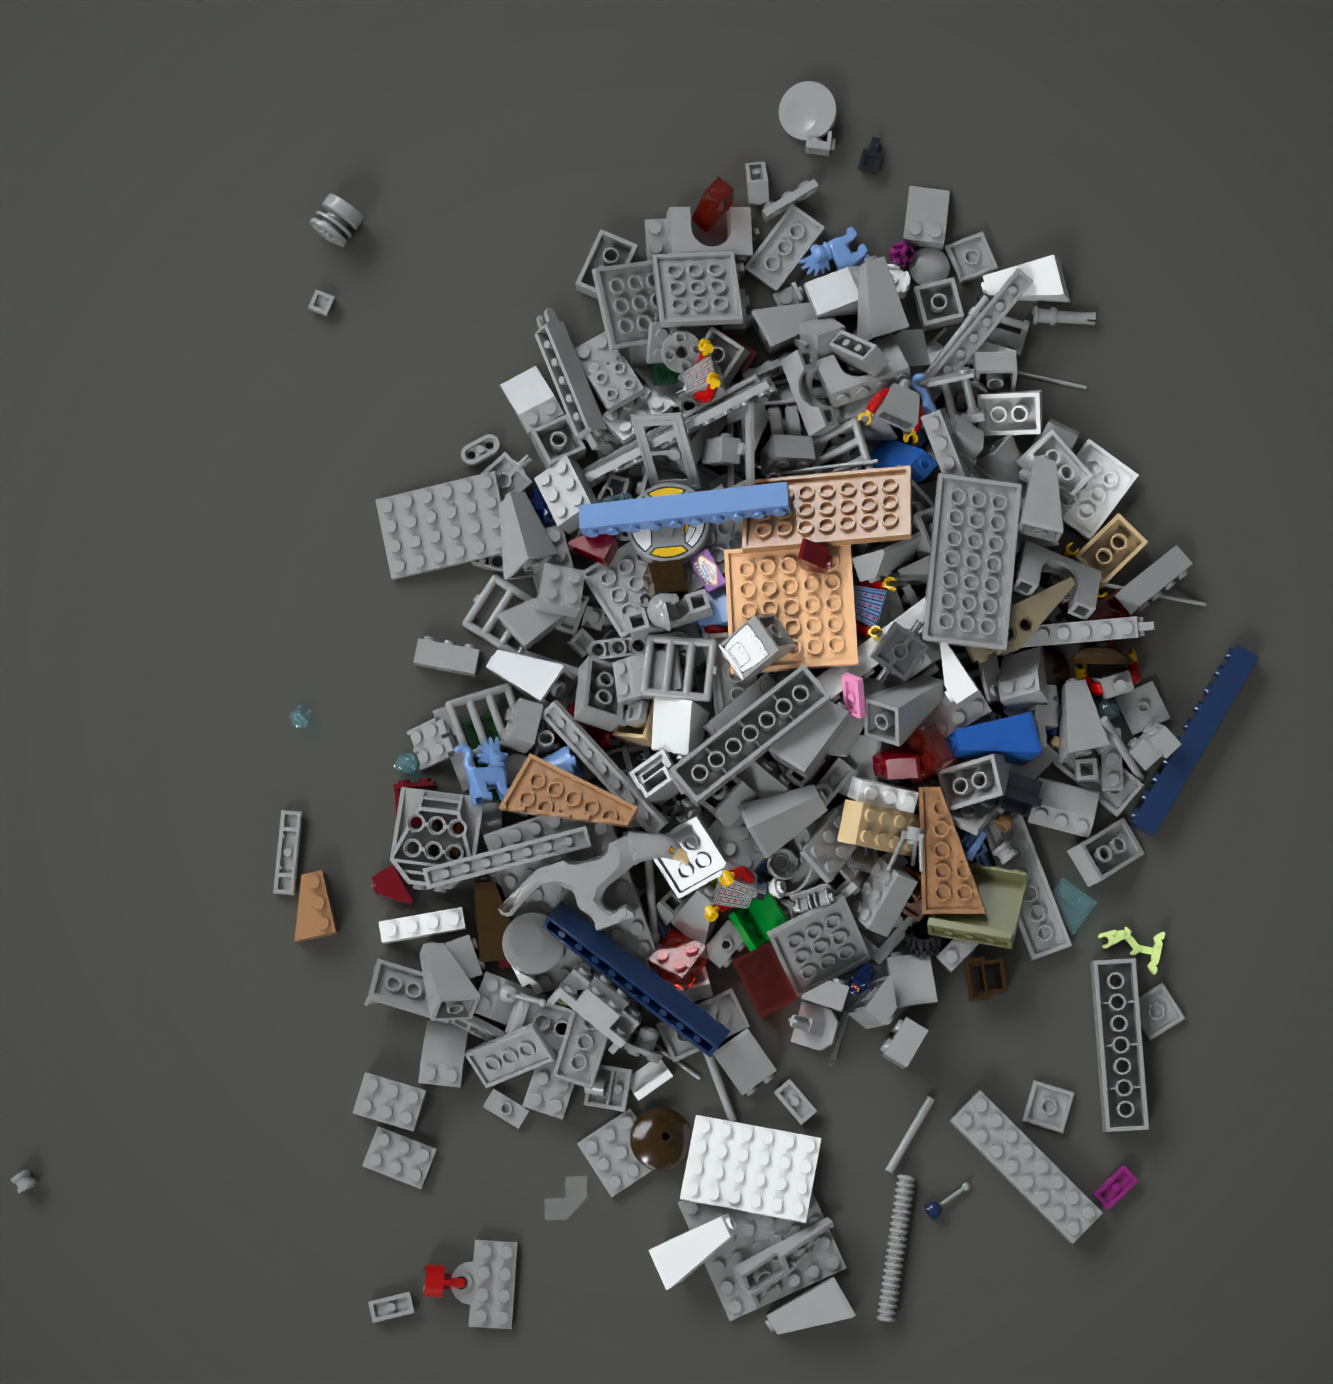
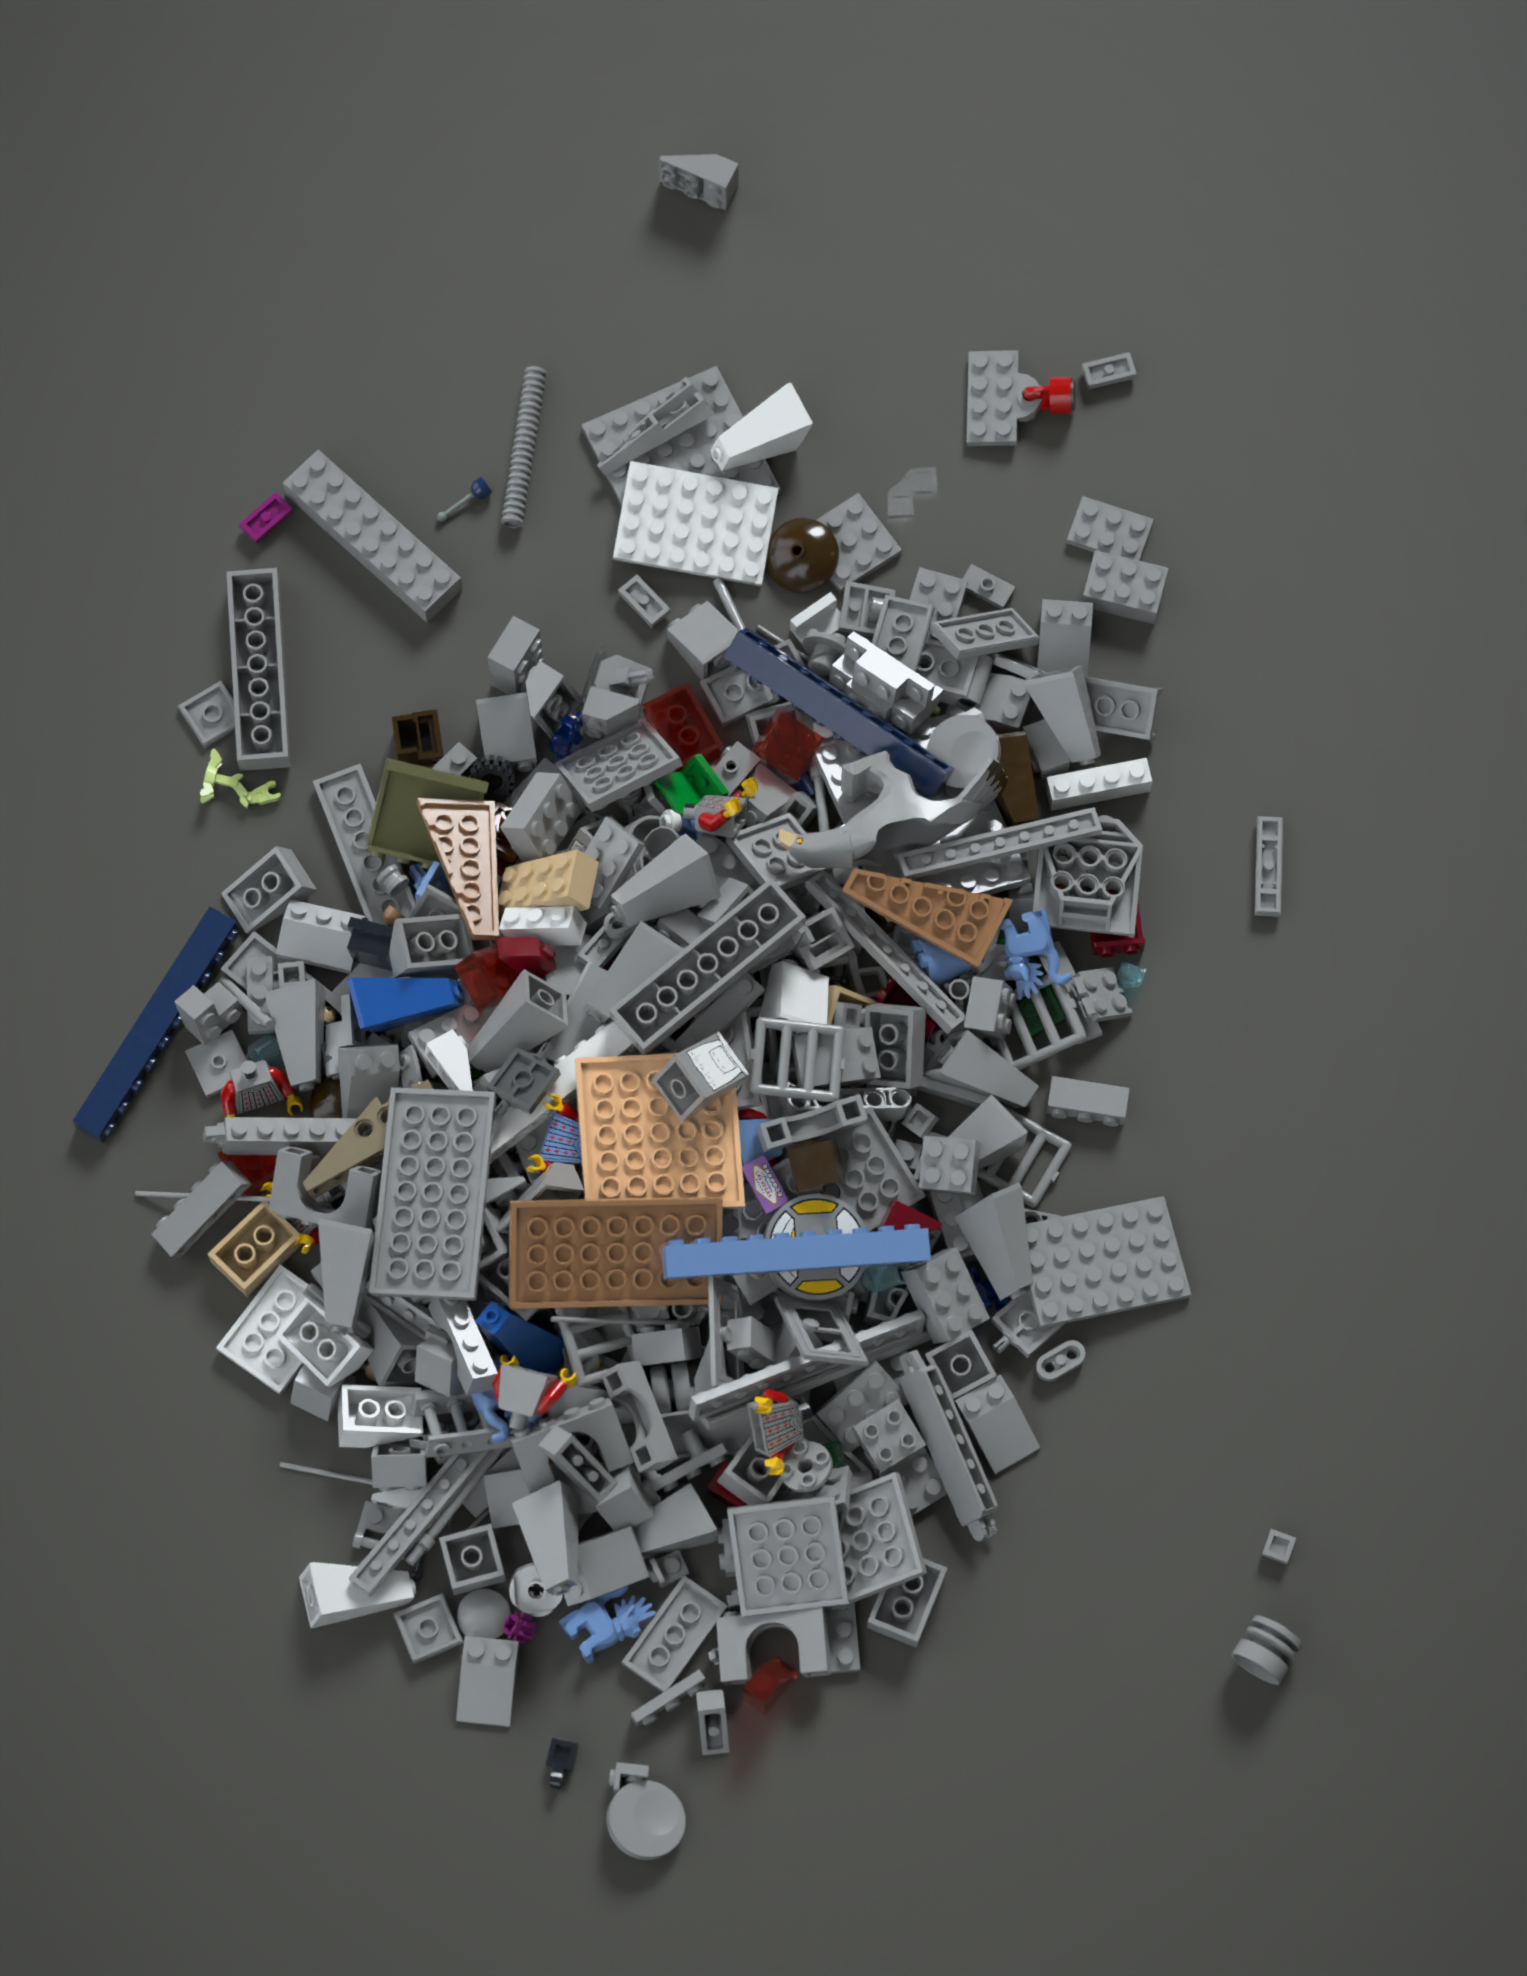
camera: 175 degrees right, 10 degrees down
(299, 719) = (1268, 1022): clear light blue plate -> none
(315, 908) = (1229, 799): medium nougat wedge -> none
(391, 886) = (1142, 825): dark red slope -> none
(510, 994) = (987, 699): light grey hinge -> none
(663, 610) = (821, 1123): light grey helmet -> none
(814, 557) = (630, 1181): dark red slope -> none
(814, 897) = (620, 805): light grey hinge -> none
(814, 1307) = (621, 377): light grey slope -> none
(853, 887) = (581, 820): light grey plate -> none
(854, 695) = (580, 1027): bright pink plate -> none
(910, 1134) = (507, 570): light grey bar -> none
(914, 837) = (504, 876): light grey plant -> none
(1048, 1106) = (343, 605): light grey tile -> none
(1055, 316) = (318, 1552): light grey pin -> none
(1072, 904) = (311, 831): clear light blue wing -> none
(1101, 655) = (270, 1102): dark brown dish -> none

